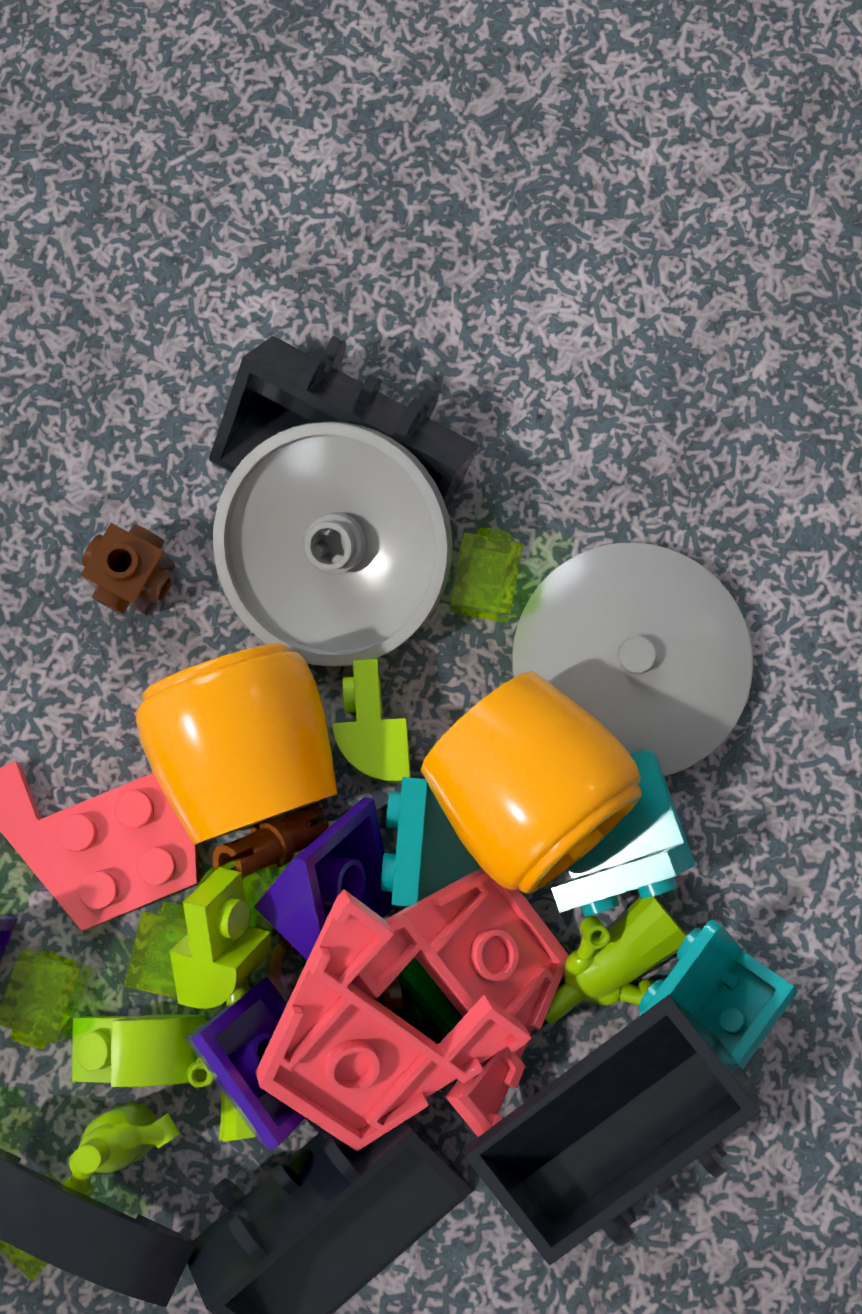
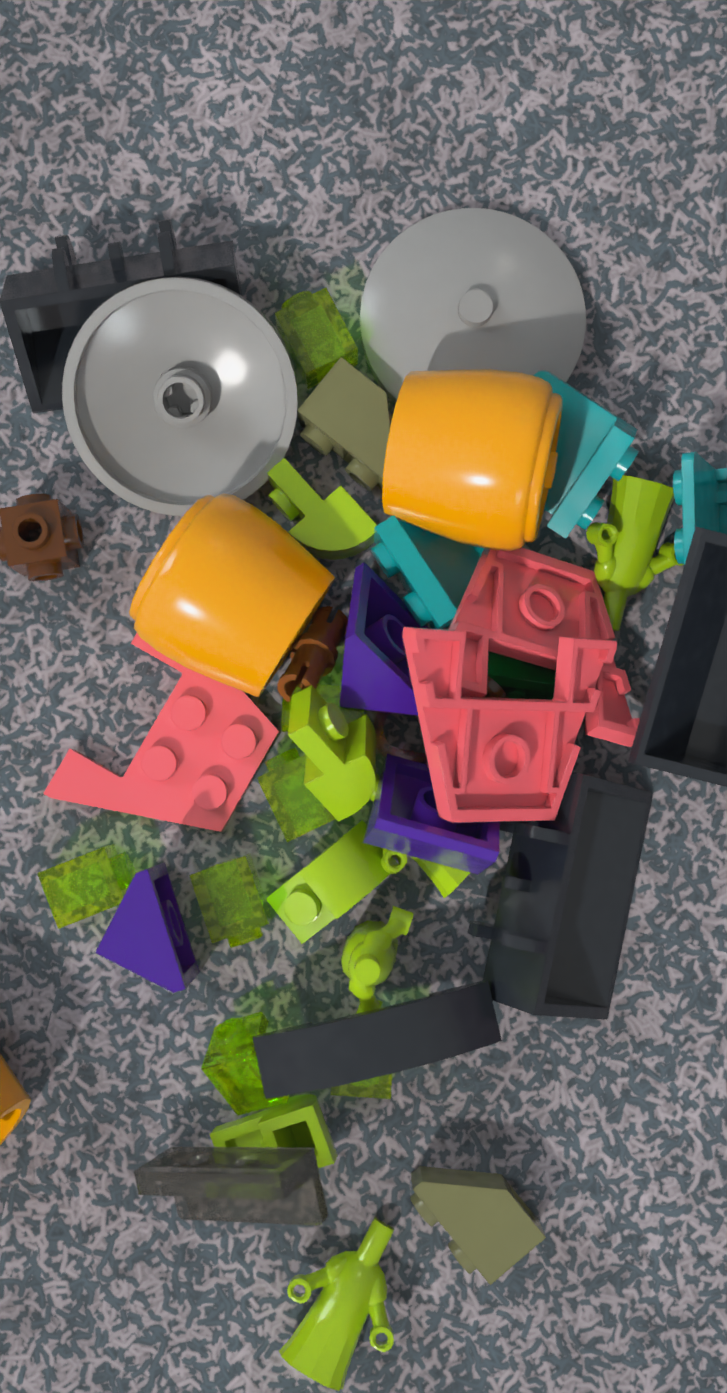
camera: 40 degrees left, 5 degrees up
(462, 667) = (351, 419): none -> olive slope

